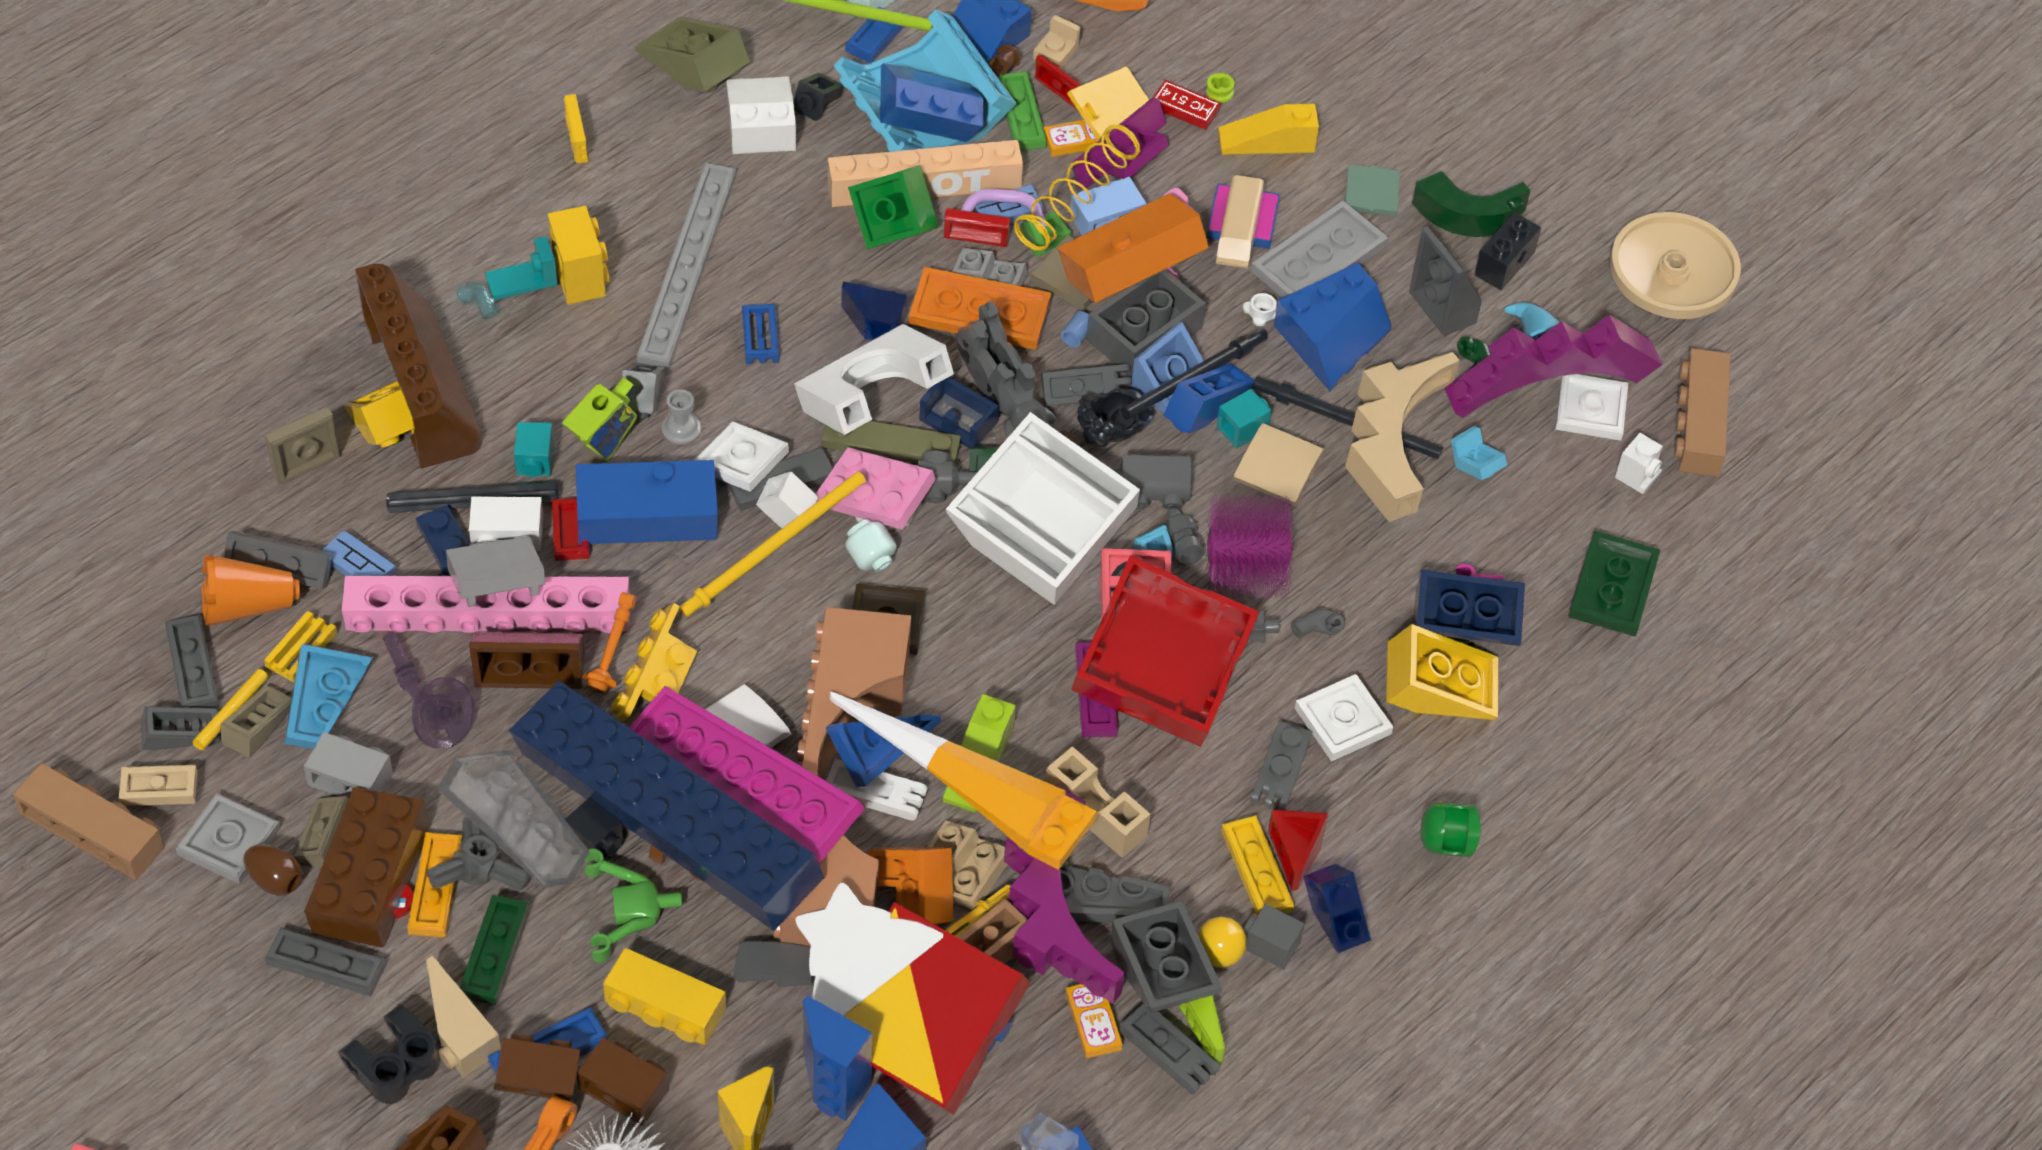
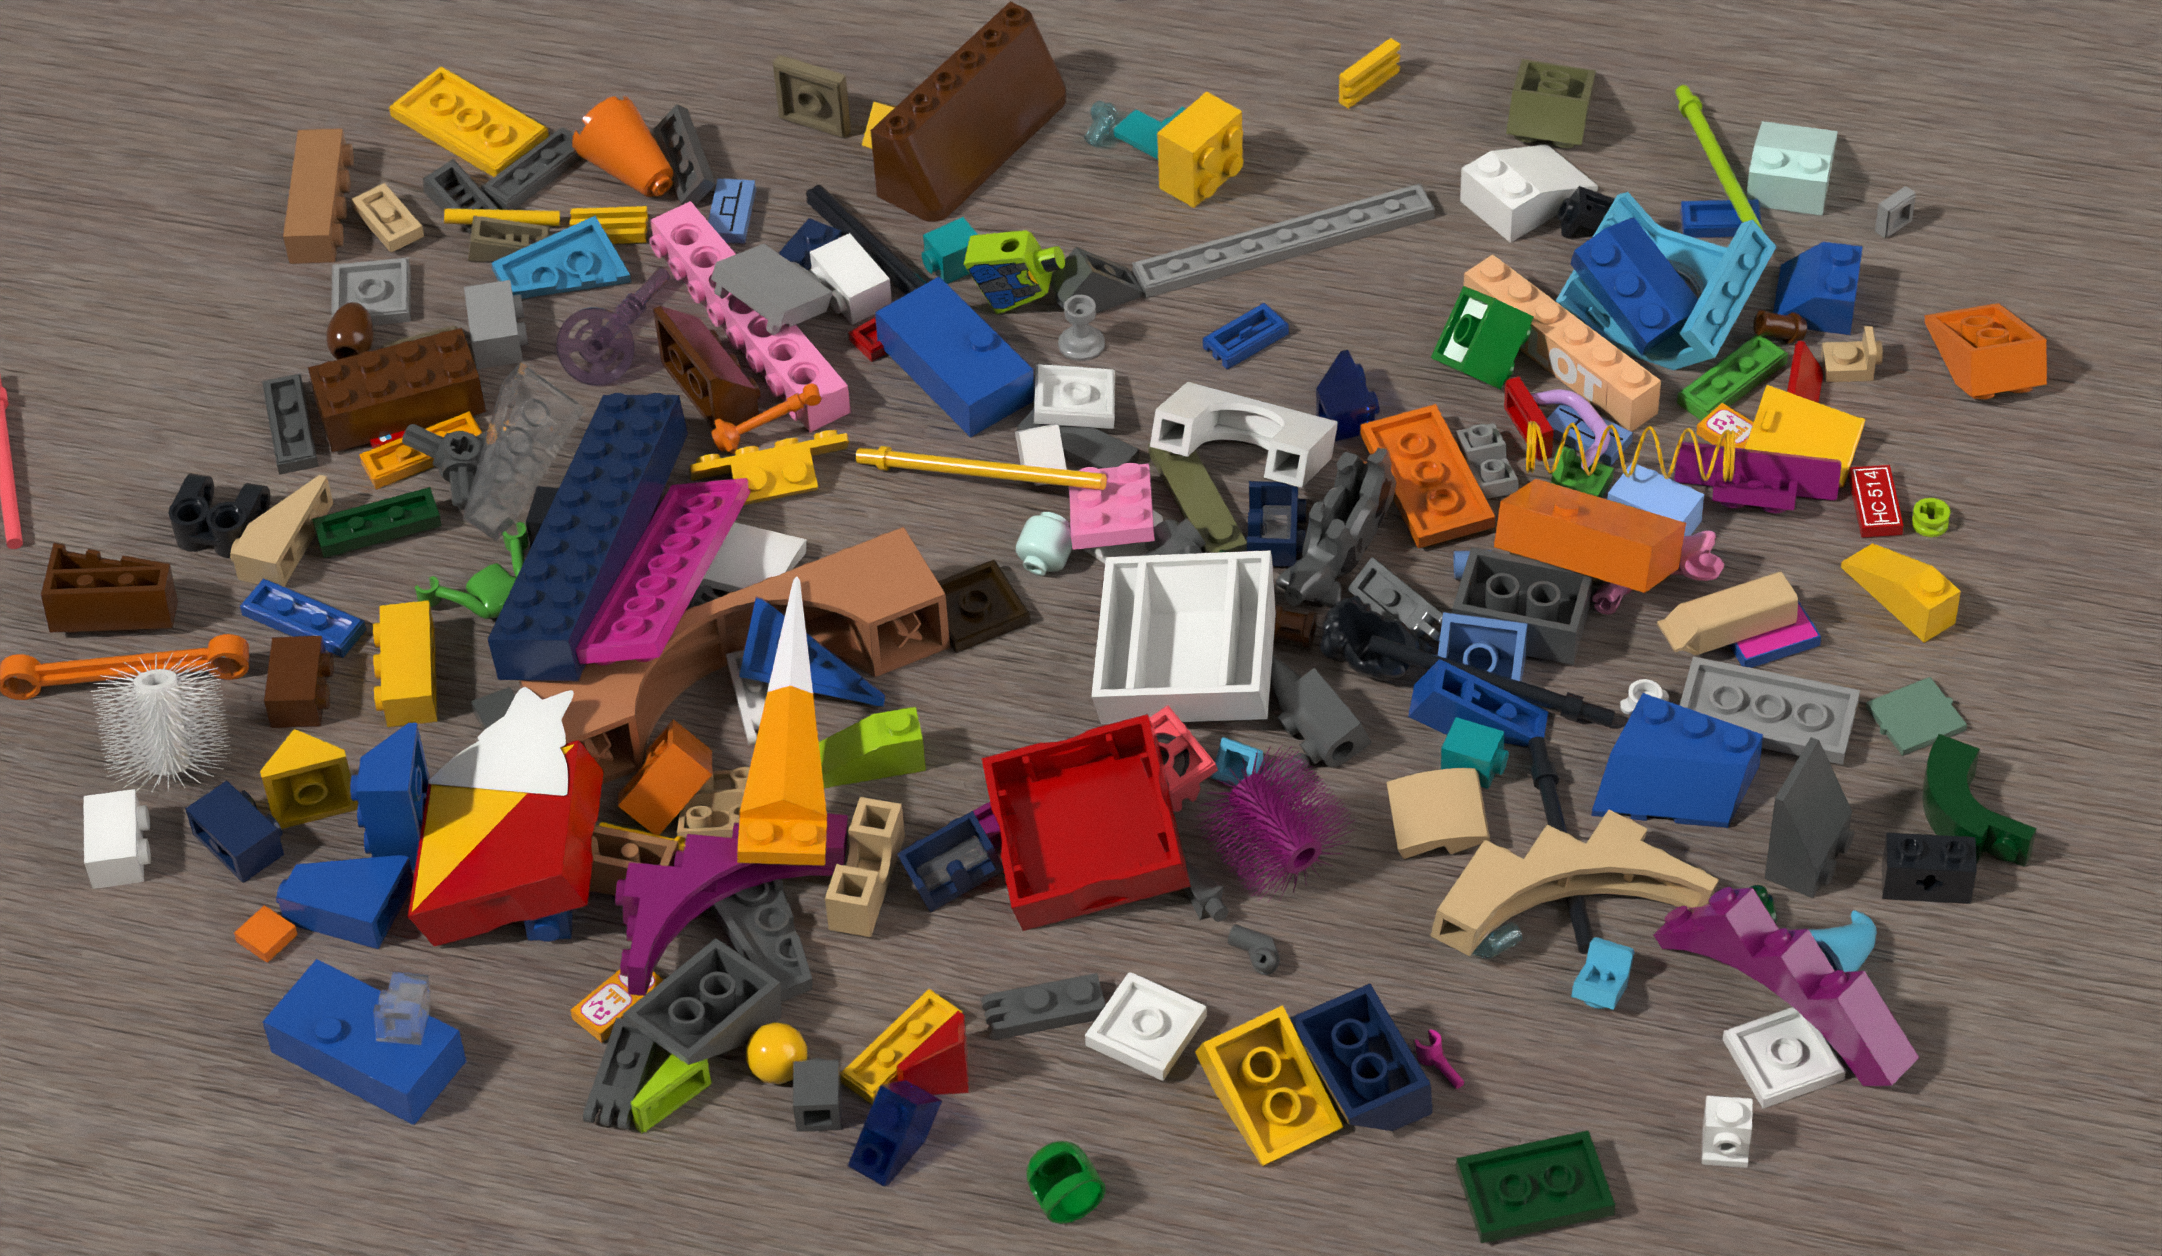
camera: 65 degrees right, 5 degrees down
(93, 681) = (468, 121): none -> yellow tile
(536, 1067) = (259, 607): reddish brown brick -> none
(1127, 749) = (951, 861): none -> dark blue window
(1675, 265) = (2055, 1030): tan dish -> none
(1703, 412) = (1863, 1160): medium nougat brick -> none

